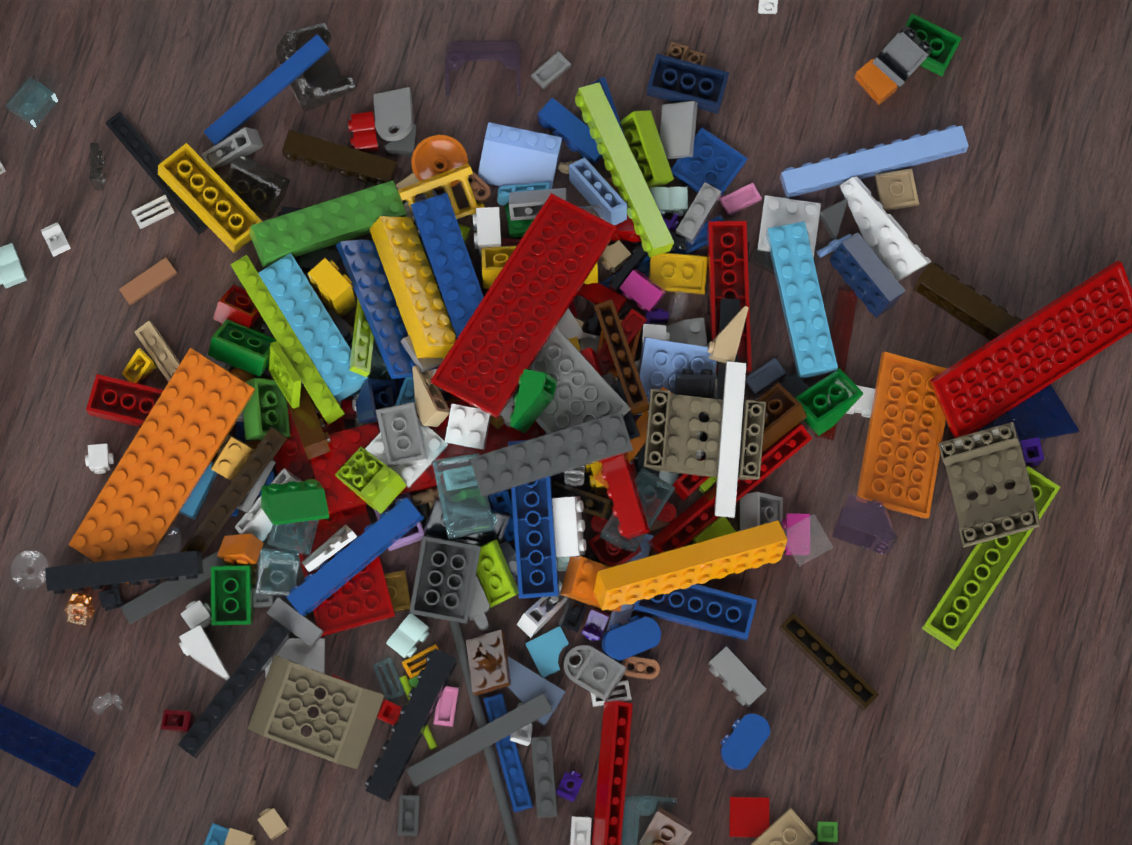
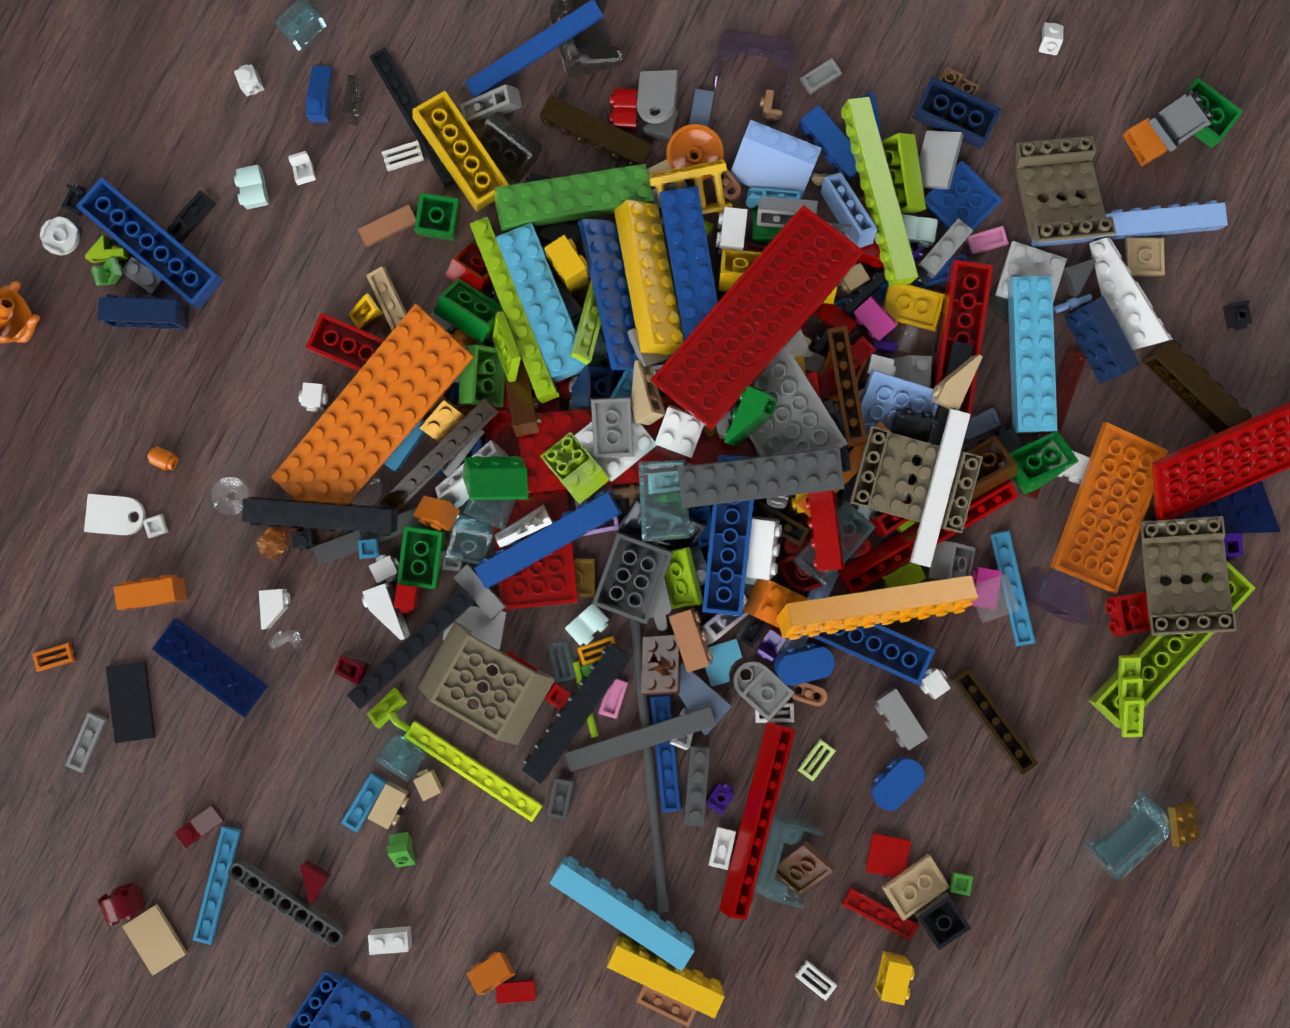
camera: 10 degrees right, 10 degrees up
(62, 167) = (319, 95): none -> blue slope
(89, 671) = (272, 606): none -> white slope
(177, 597) = (368, 548): none -> dark azure tile
(197, 264) = (437, 217): none -> green brick
(220, 754) = (387, 709): none -> lime plate
(224, 638) = (407, 598): none -> red brick
(242, 800) = (401, 758): none -> clear light blue slope
(316, 803) = (473, 770): none -> neon yellow tile
(439, 118) = (701, 107): none -> sand blue tile
(501, 103) = (766, 102): none -> medium nougat bracket
(514, 630) = (691, 639): none -> nougat slope
(653, 748) = (806, 772): none -> yellowish green tile
(763, 635) = (934, 683): none -> white brick
(799, 120) = (1061, 169): none -> dark tan slope
(816, 505) = (1008, 564): none -> dark azure tile
(942, 535) = (1128, 614): none -> red plate
(956, 611) = (1130, 696): none -> lime slope
(992, 758) = (1132, 840): none -> clear light blue windscreen
(994, 236) = (1232, 313): none -> black brick
(1036, 731) = (1183, 823): none -> pearl gold plate

